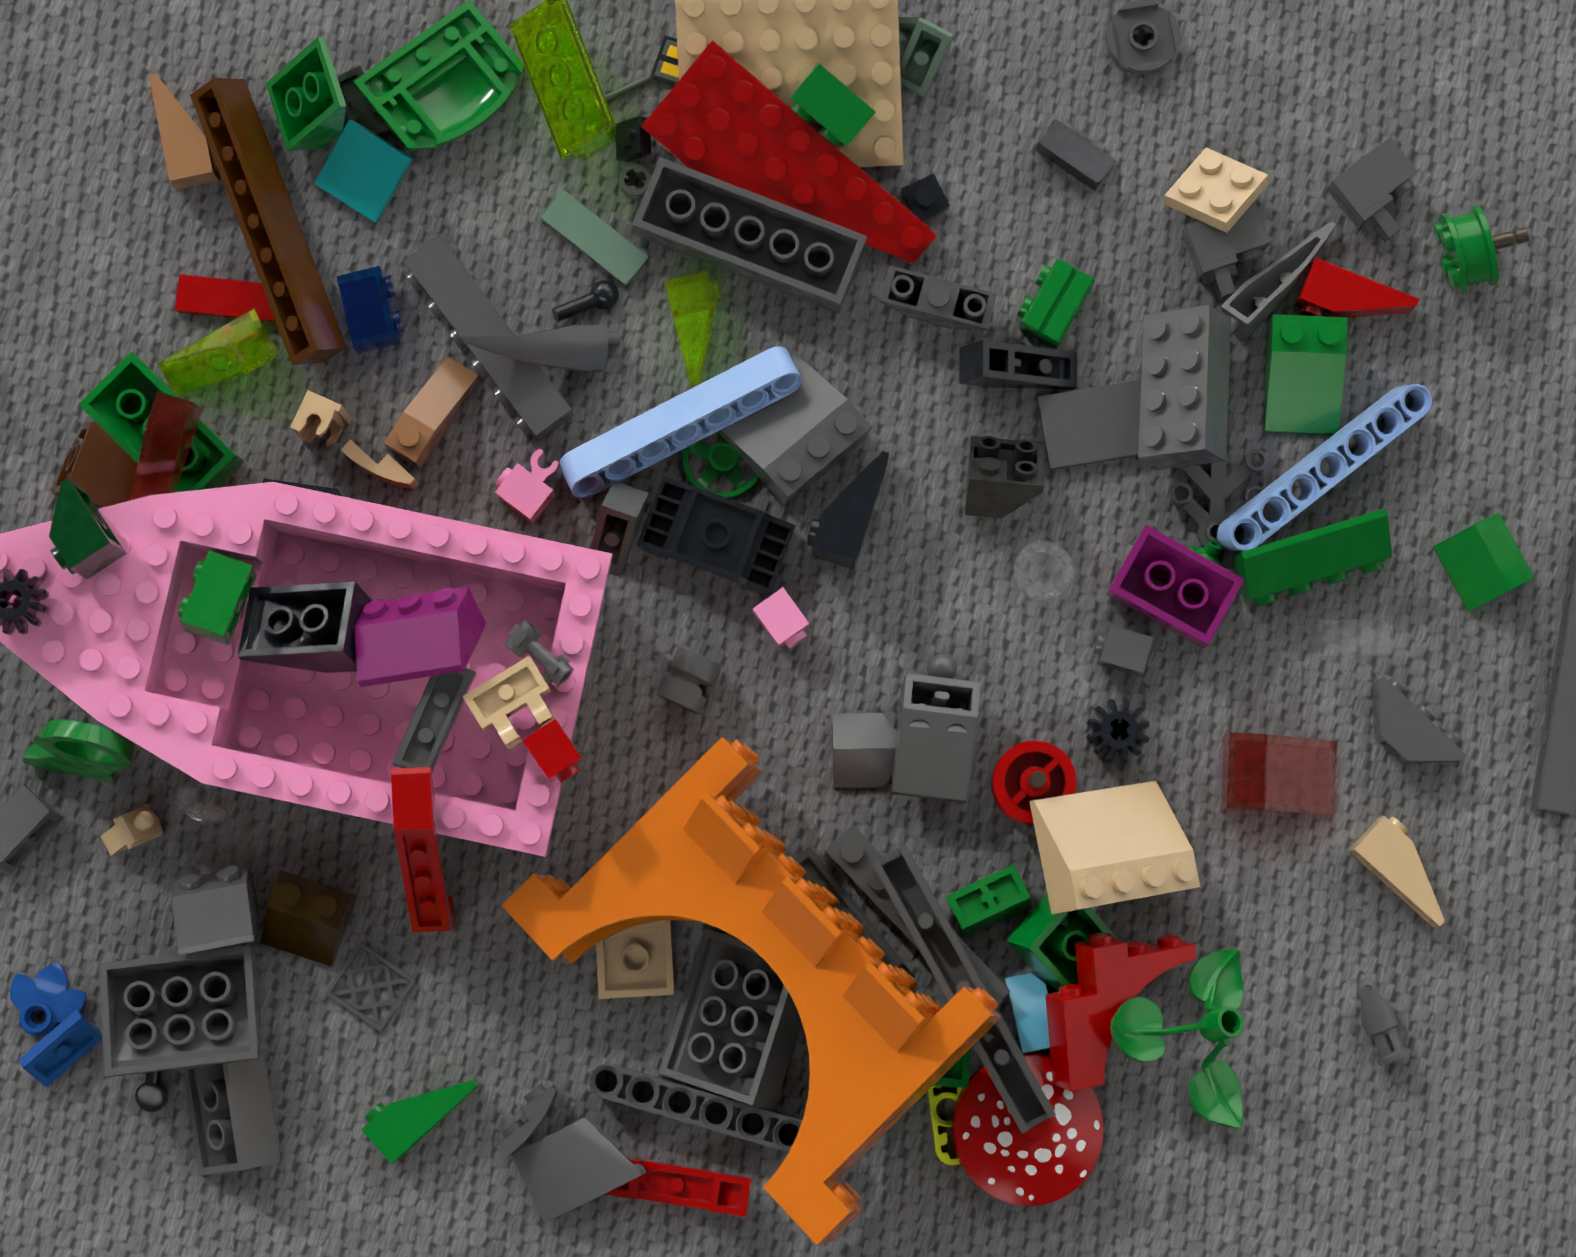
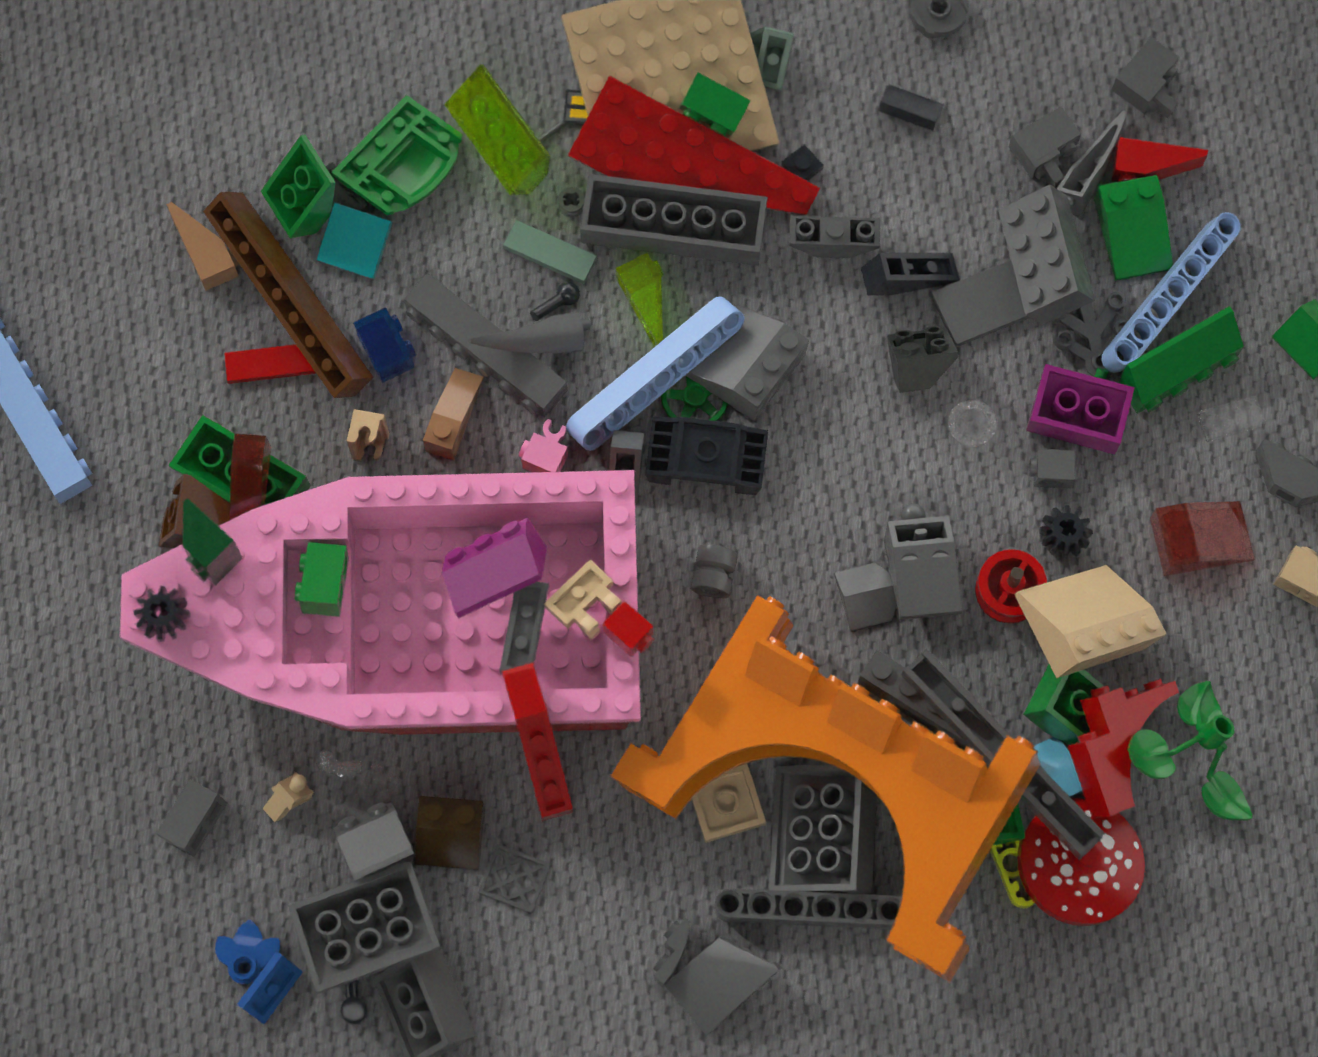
camera: 15 degrees left, 10 degrees down
(80, 750) = (230, 743): green animal -> none
(220, 355) = (275, 403): clear neon green slope -> none
(303, 626) = (399, 585): black slope -> none
(386, 470) = (429, 464): tan slope -> none
(407, 1121) = (574, 975): green slope -> none
(524, 640) = (582, 550): dark grey bar -> none
(632, 140) = (562, 170): black plate -> none
(688, 1188) = (818, 977): red slope -> none
(782, 619) = (775, 507): bright pink brick -> none
(845, 521) = (806, 426): black slope -> none
(989, 901) = (1003, 685): green hinge -> none
(1056, 302) = (927, 218): green brick -> none
(1216, 190) = (1028, 105): tan plate -> none
(1472, 248) = (1237, 103): green wheel -> none

